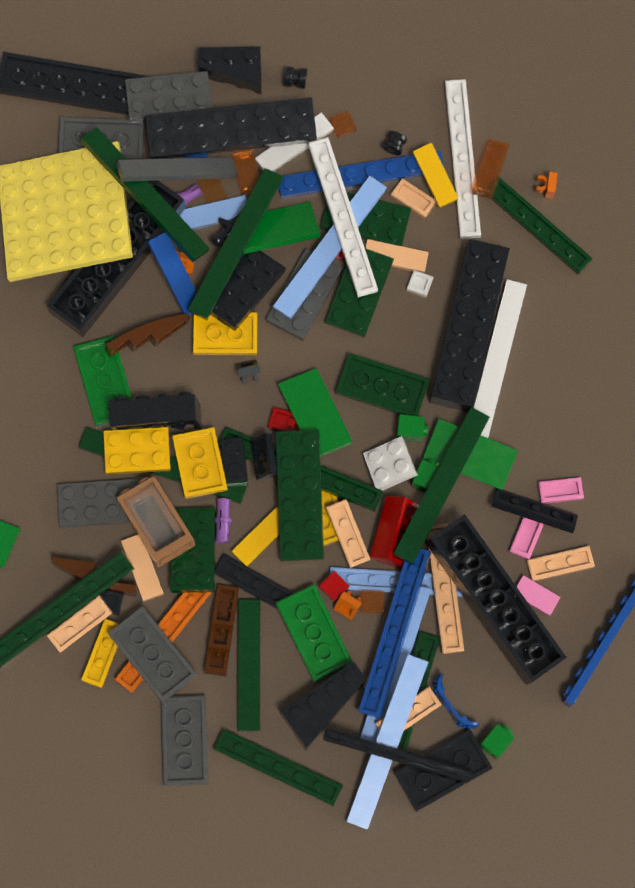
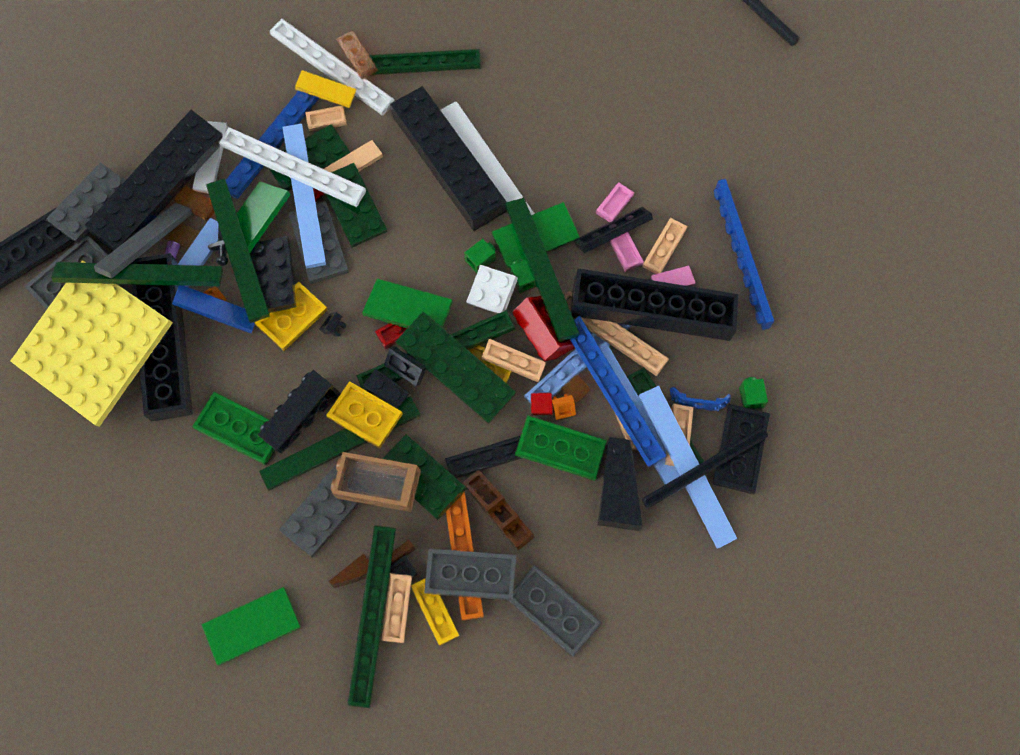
camera: 40 degrees left, 5 degrees down
(137, 450) = (311, 450): yellow plate -> none
(144, 570) = (405, 526): light nougat tile -> none
(154, 331) = (239, 362): reddish brown slope -> none
(223, 520) = (420, 437): medium lavender pin -> none
(232, 65) = (115, 144): black wedge -> none
(249, 666) = (542, 514): dark green tile -> none
(258, 539) = (457, 424): yellow tile -> none
(278, 767) = (634, 561): dark green tile -> none
(295, 77) = (167, 115): black wheel -> none
(342, 124) = (230, 115): clear orange tile -> none
(382, 386) = (432, 248): dark green plate -> none
(394, 143) = (277, 95): black wheel -> none
(420, 283) = (387, 165): white tile -> none
(549, 184) = (405, 30): orange tile -> none

